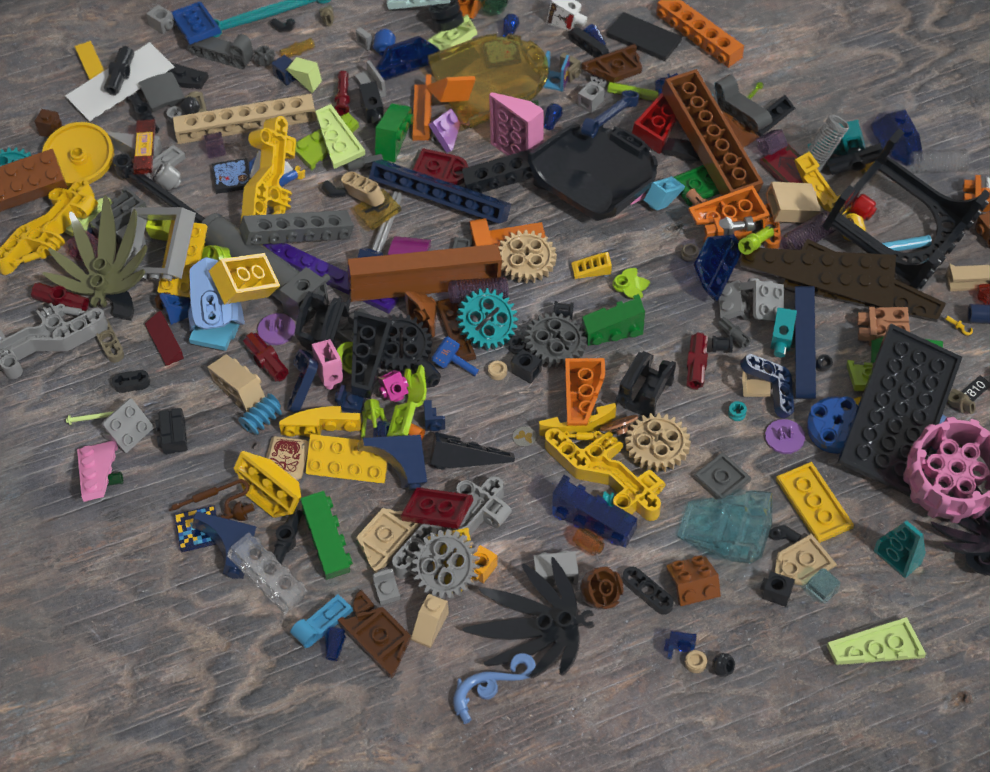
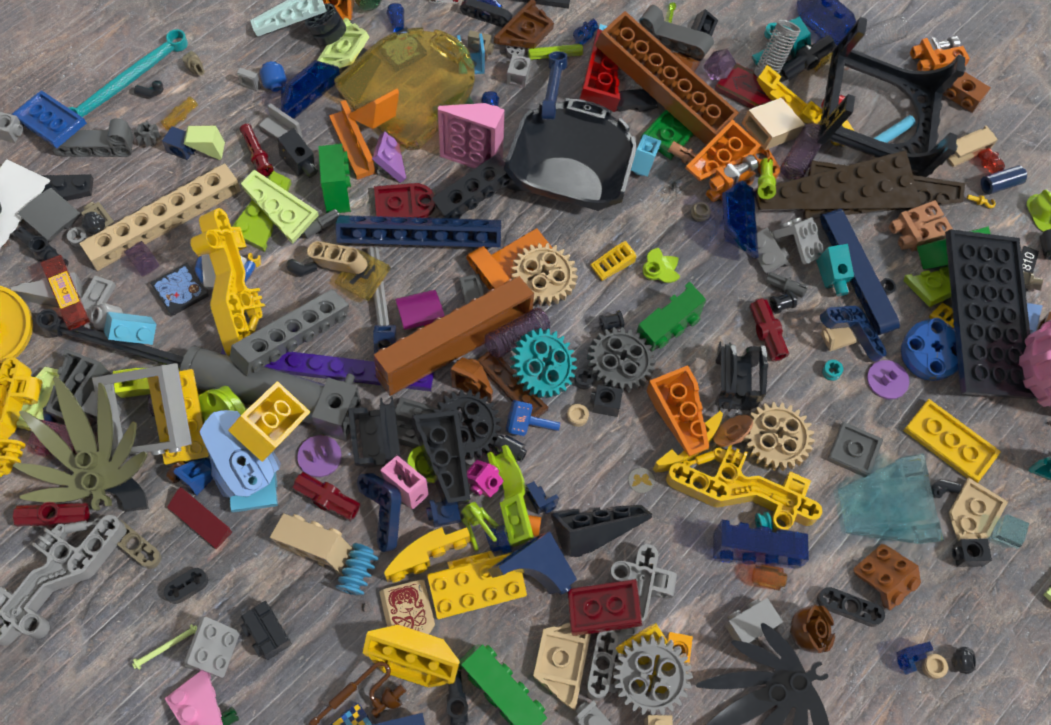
camera: 30 degrees left, 10 degrees up
(179, 187) = (129, 328): none -> medium azure brick

